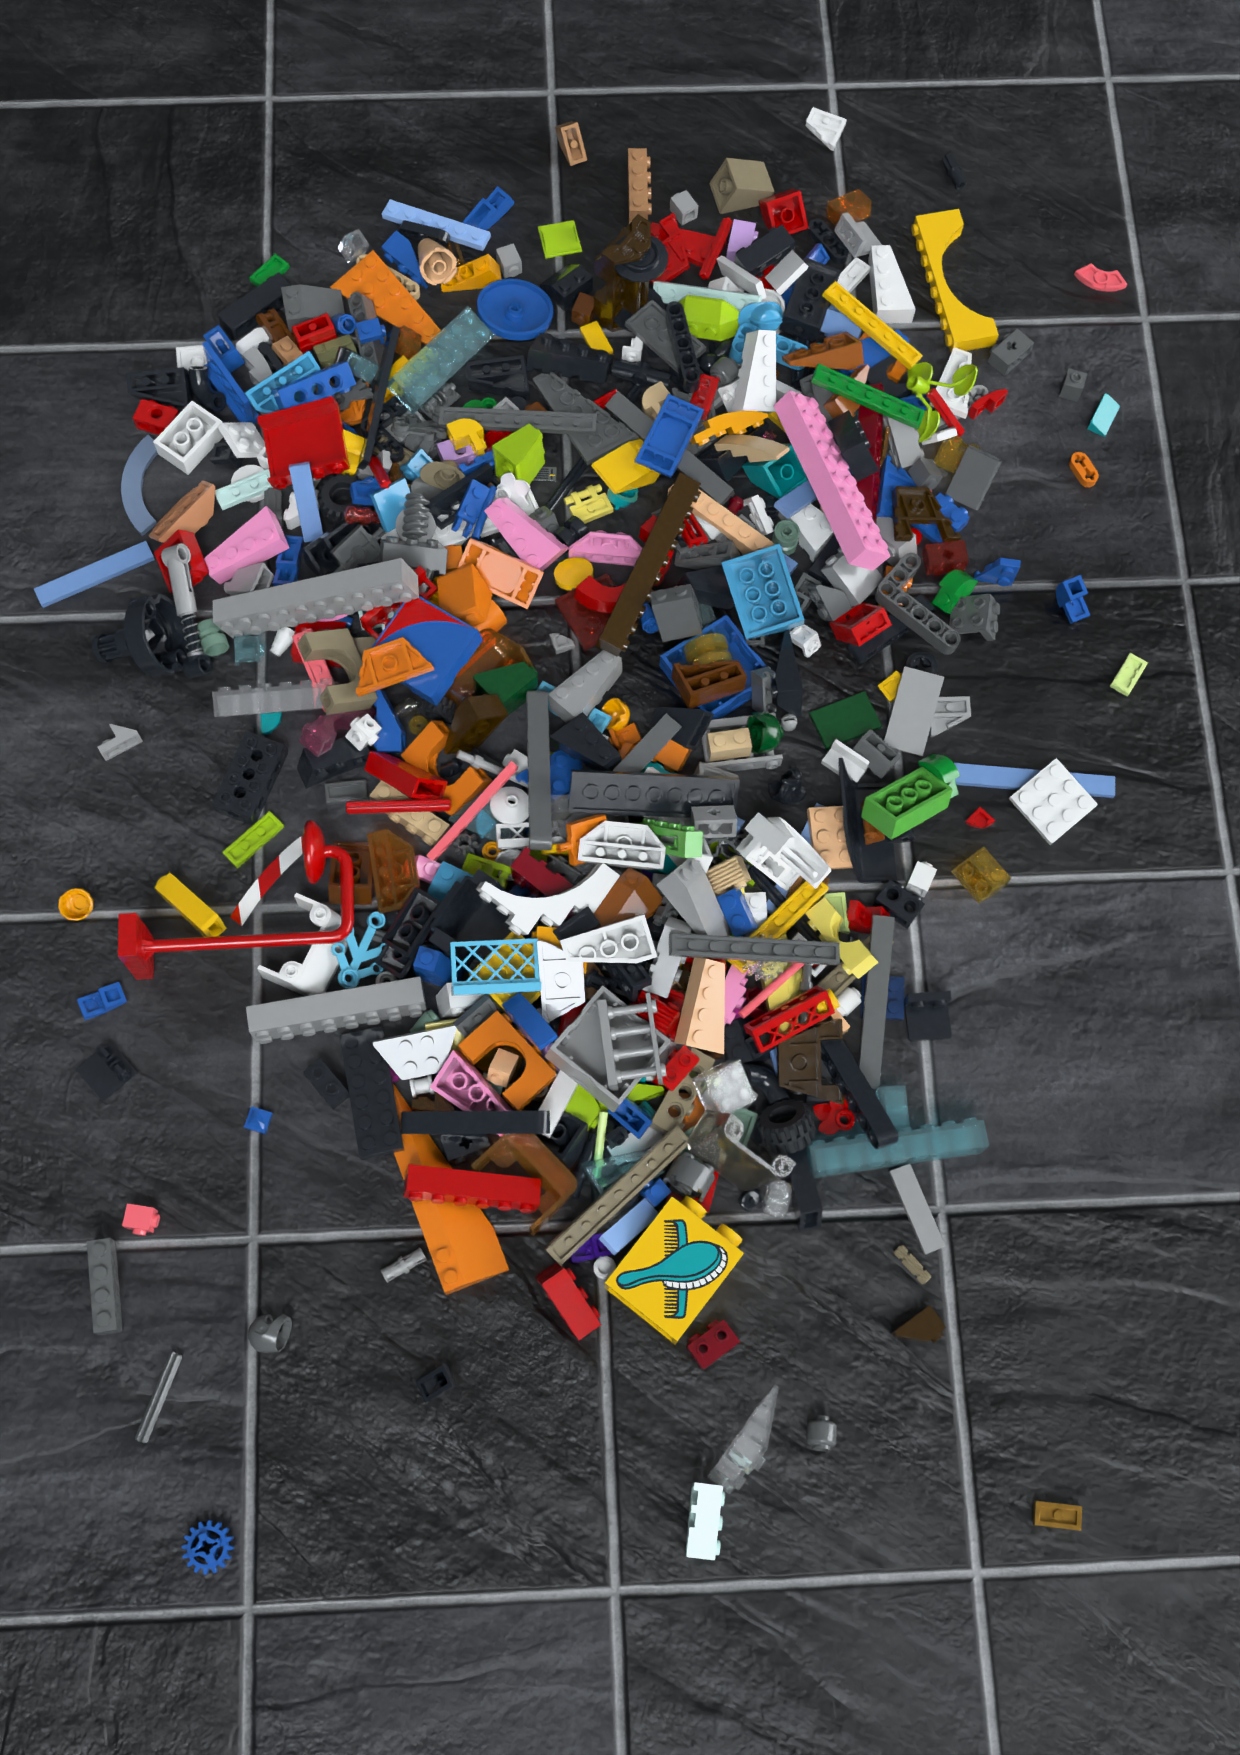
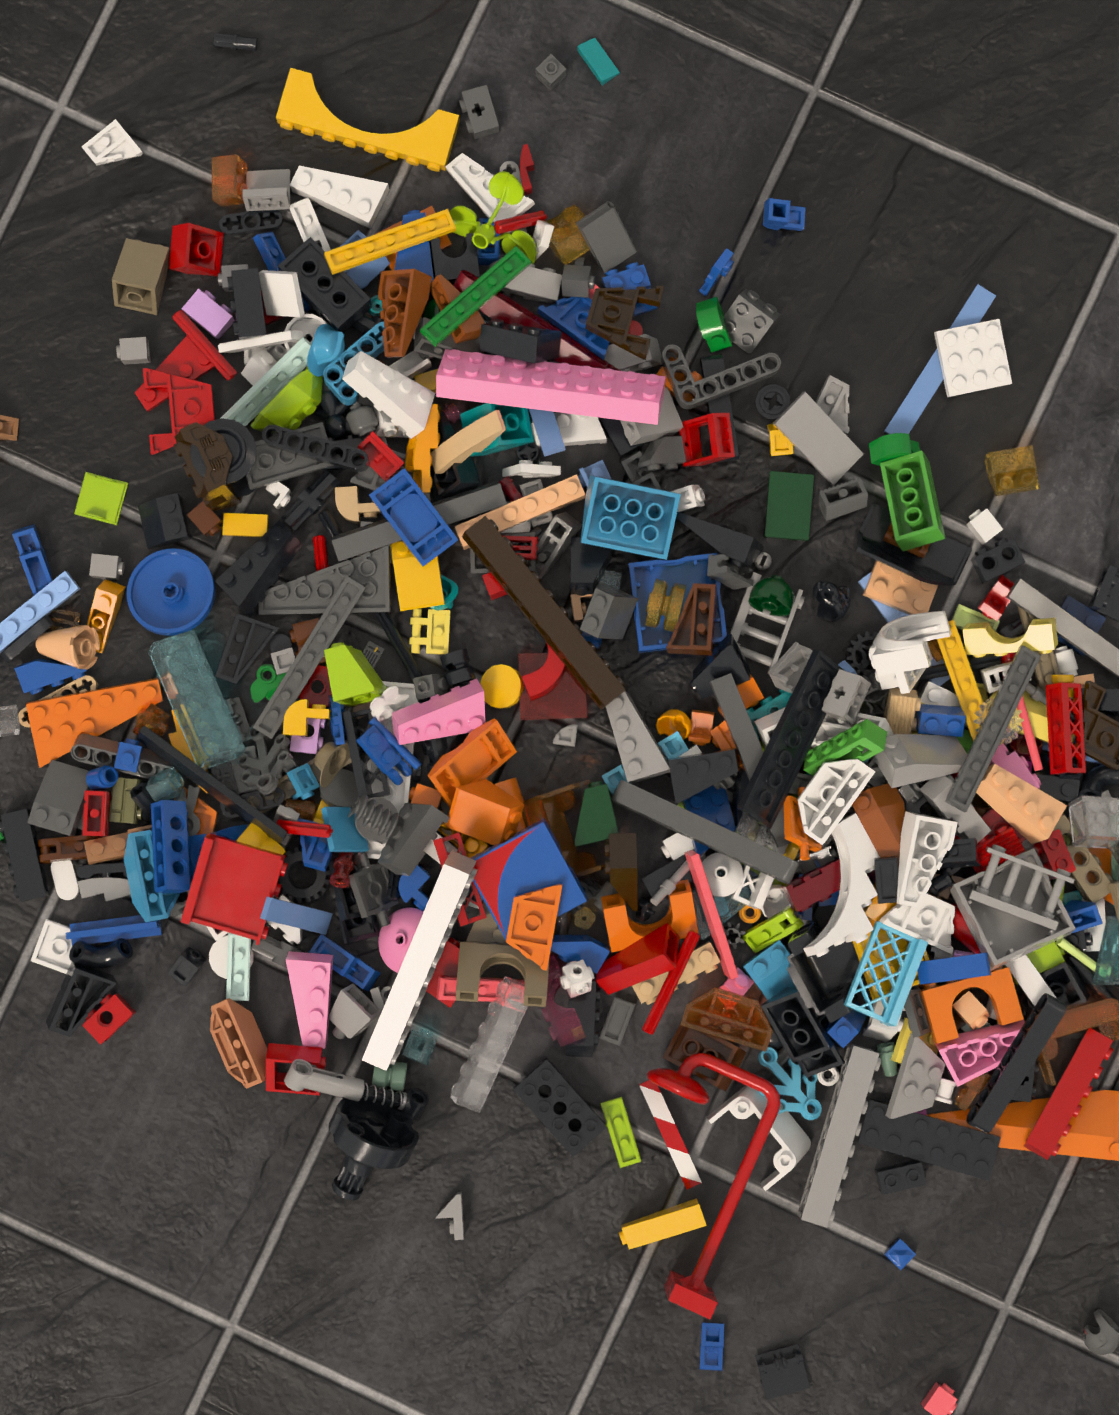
camera: 60 degrees left, 15 degrees up
(75, 904) = (606, 1330): light orange hair -> none
(94, 574) = (254, 1159): medium blue tile -> none
(133, 482) = (170, 1076): sand blue tile -> none
(189, 437) = (151, 996): white brick -> none
(224, 348) = (63, 914): blue slope -> none
(242, 439) = (182, 942): white plate -> none
(270, 722) = (509, 1062): teal tile -> none
(282, 641) = (428, 1009): white cone -> none
(403, 1265) = (1098, 1186): light grey pin -> none
(607, 548) = (491, 637): bright pink wedge -> none
(638, 183) = (84, 385): medium nougat brick -> none
(728, 744) = (766, 635): tan brick -> none
(787, 535) = (572, 458): sand green wheel -> none
(855, 763) = (833, 532): white panel -> none
(885, 436) = (526, 304): clear orange piece -> none
(945, 557) = (673, 299): clear red brick -> none
(980, 819) = (952, 435): red tile -> none
(1083, 469) = (645, 111): orange beam -> none
(1128, 674) = (883, 207): yellowish green plate -> none

